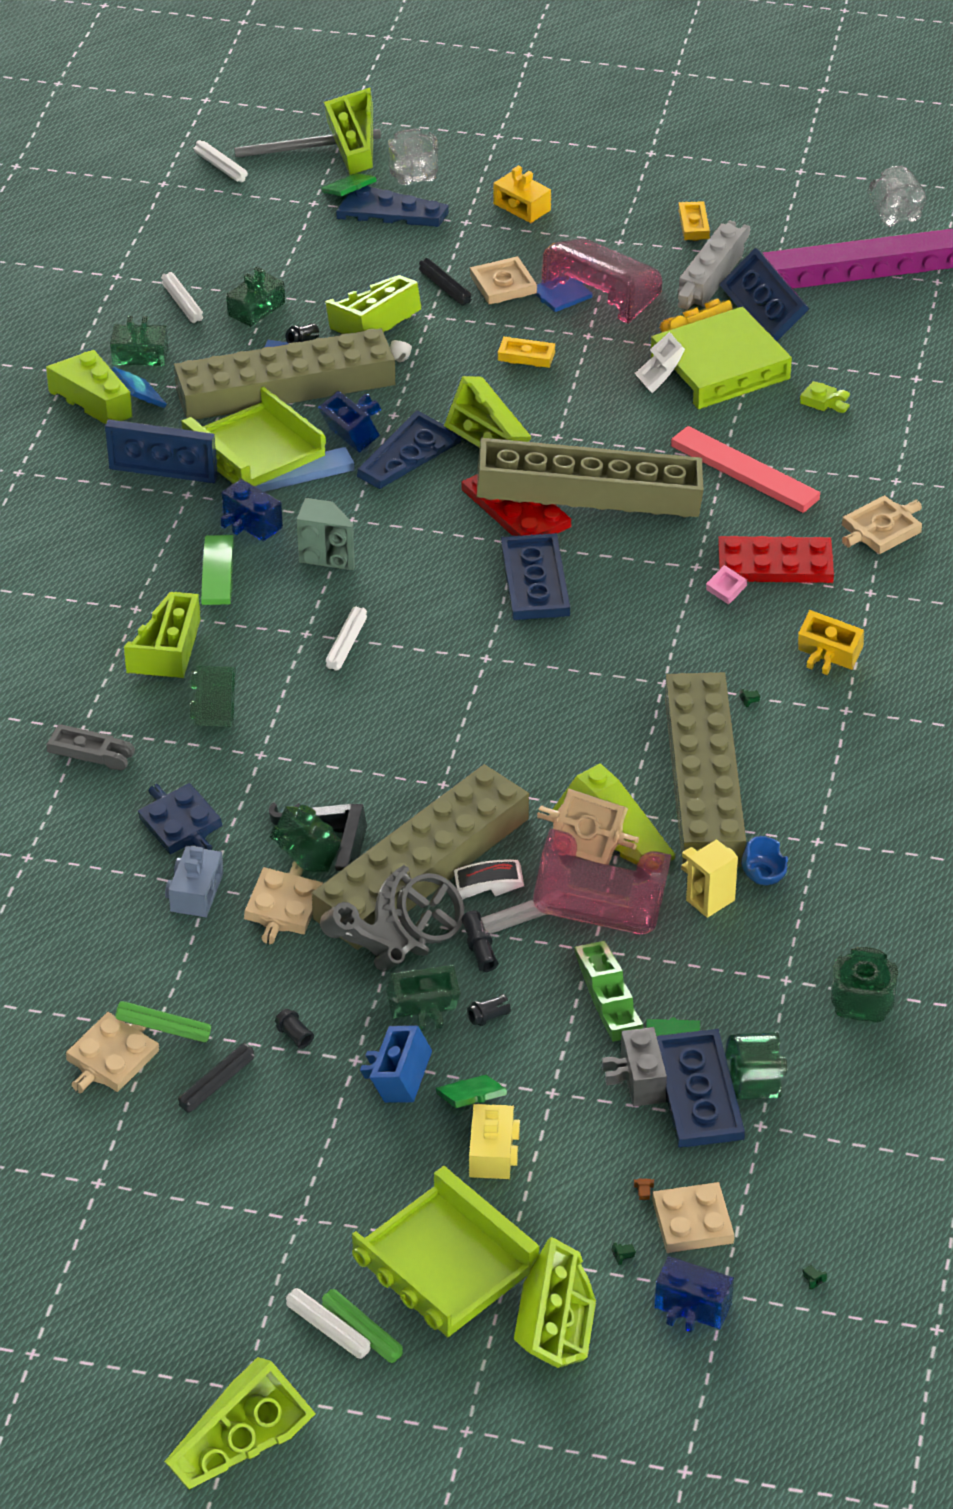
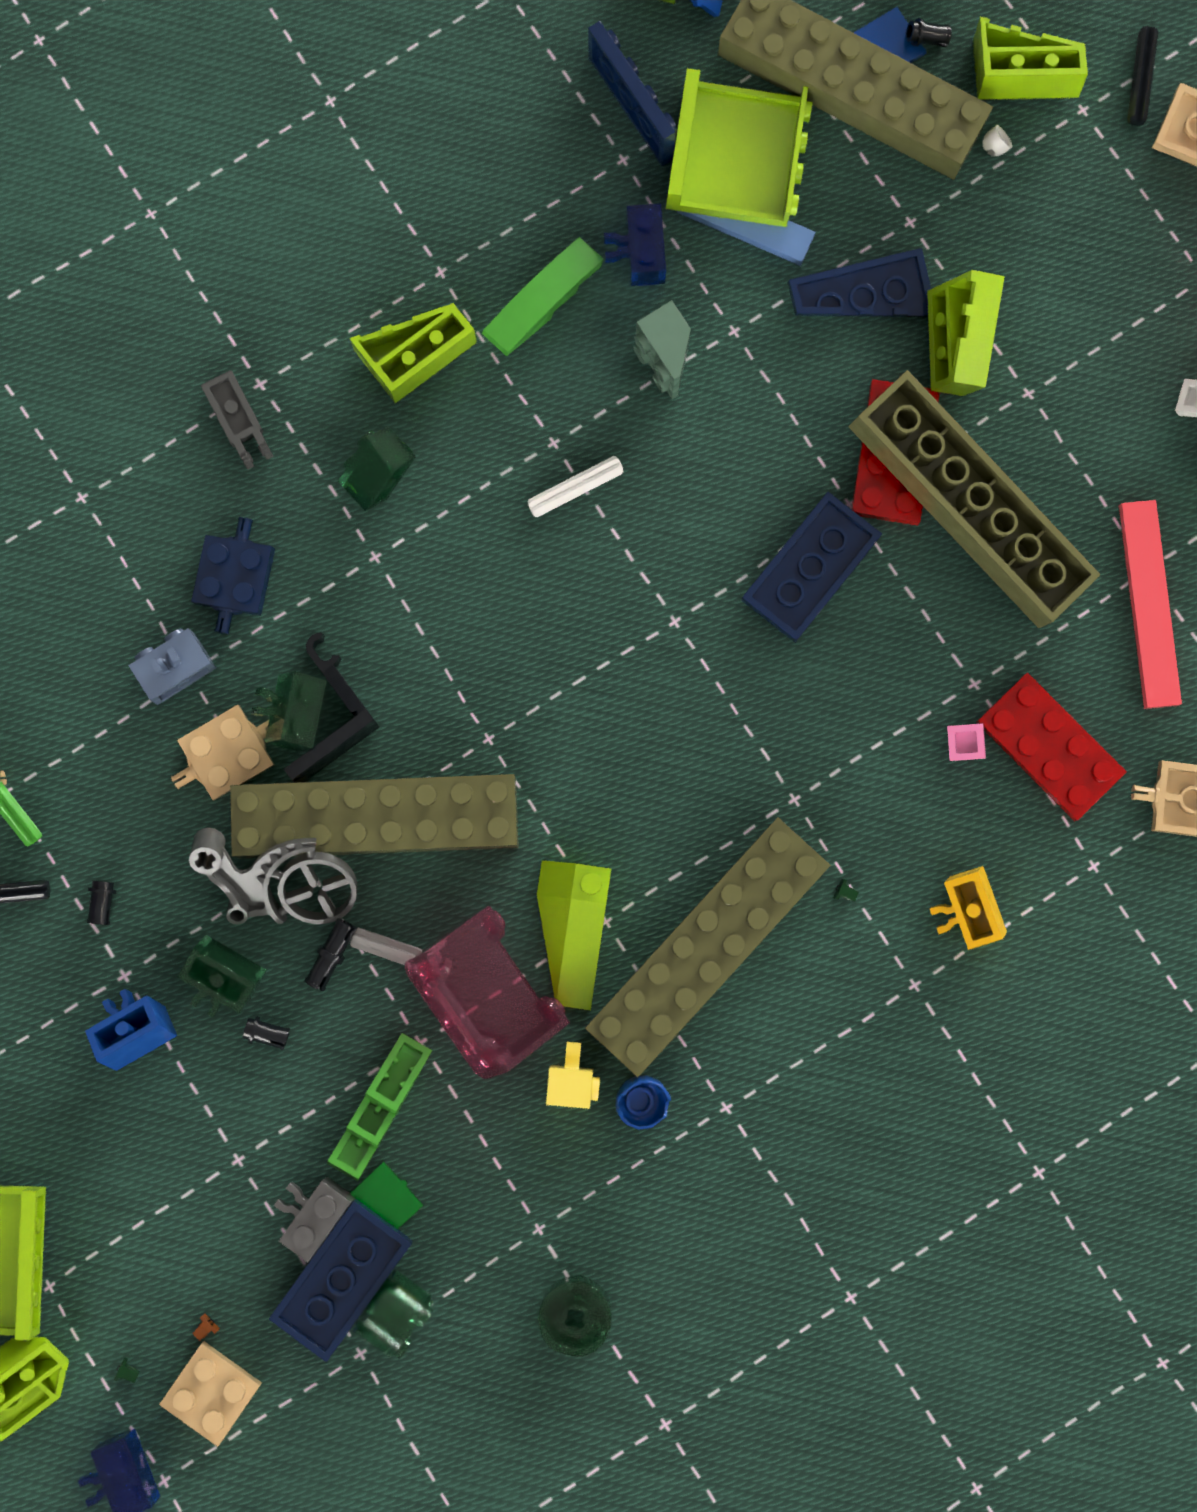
camera: 45 degrees right, 40 degrees up
(351, 420) = (845, 206): clear blue brick -> none
(471, 1091) = (162, 1110): green piece -> none
(492, 1140) = (130, 1174): light yellow brick -> none
(496, 875) = (409, 890): slope -> none
(526, 352) = (1113, 254): yellow plate -> none
(593, 824) = (535, 924): tan plate -> none

